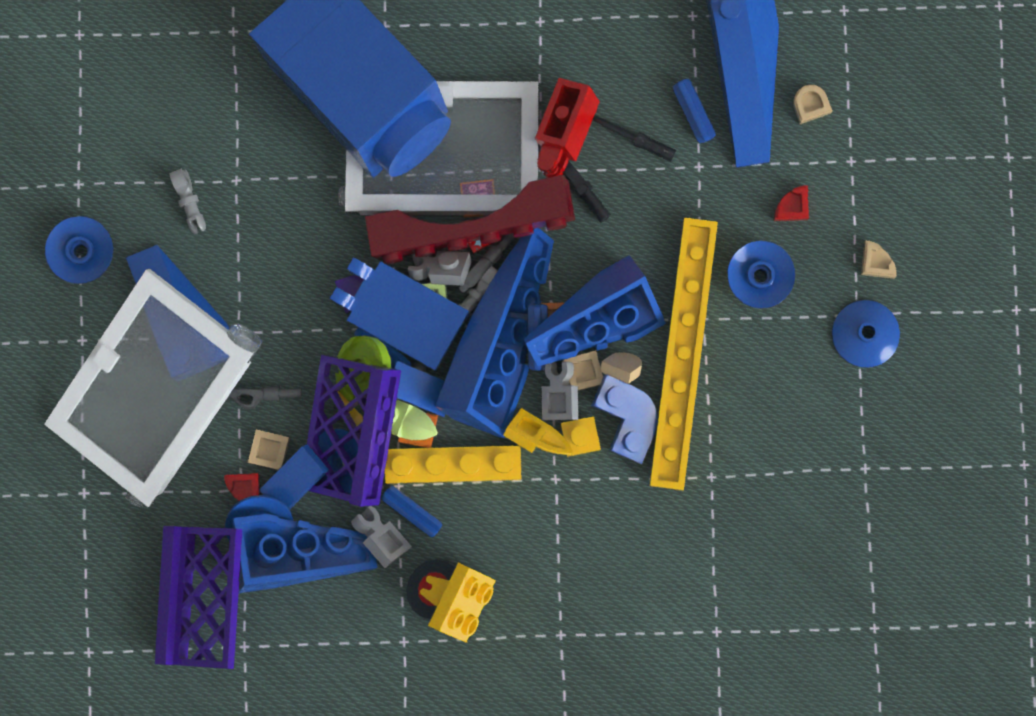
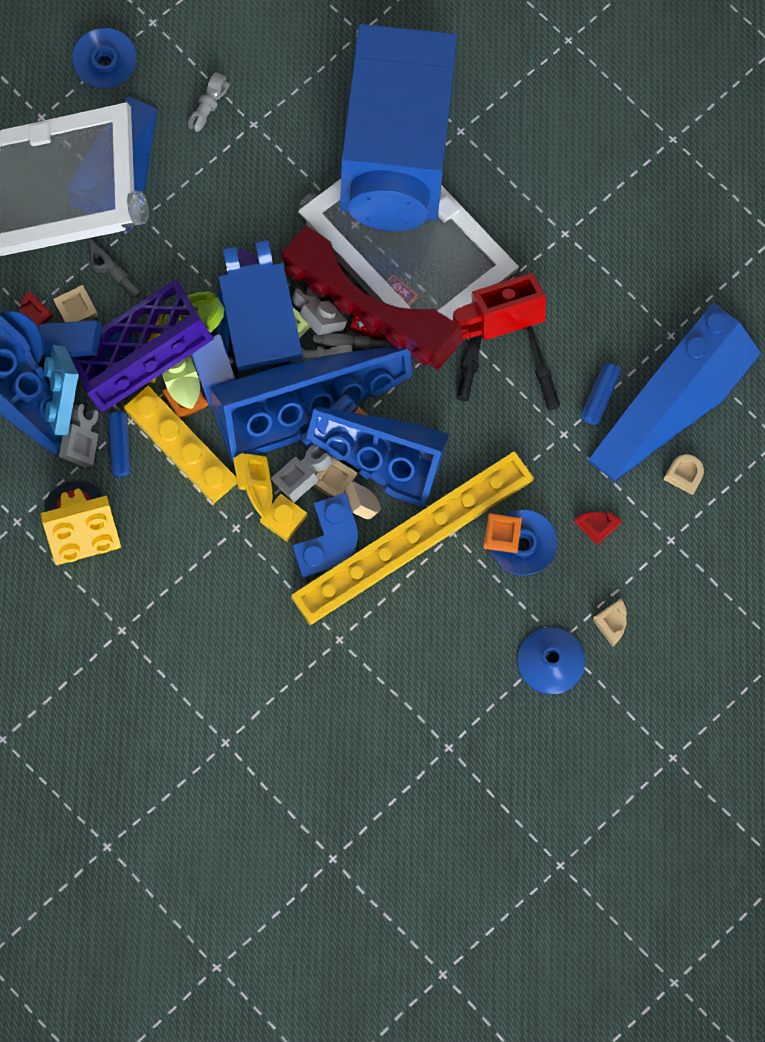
camera: 45 degrees right, 10 degrees down
(337, 519) = (63, 383): none -> dark azure plate
(742, 284) = (502, 533): none -> orange tile

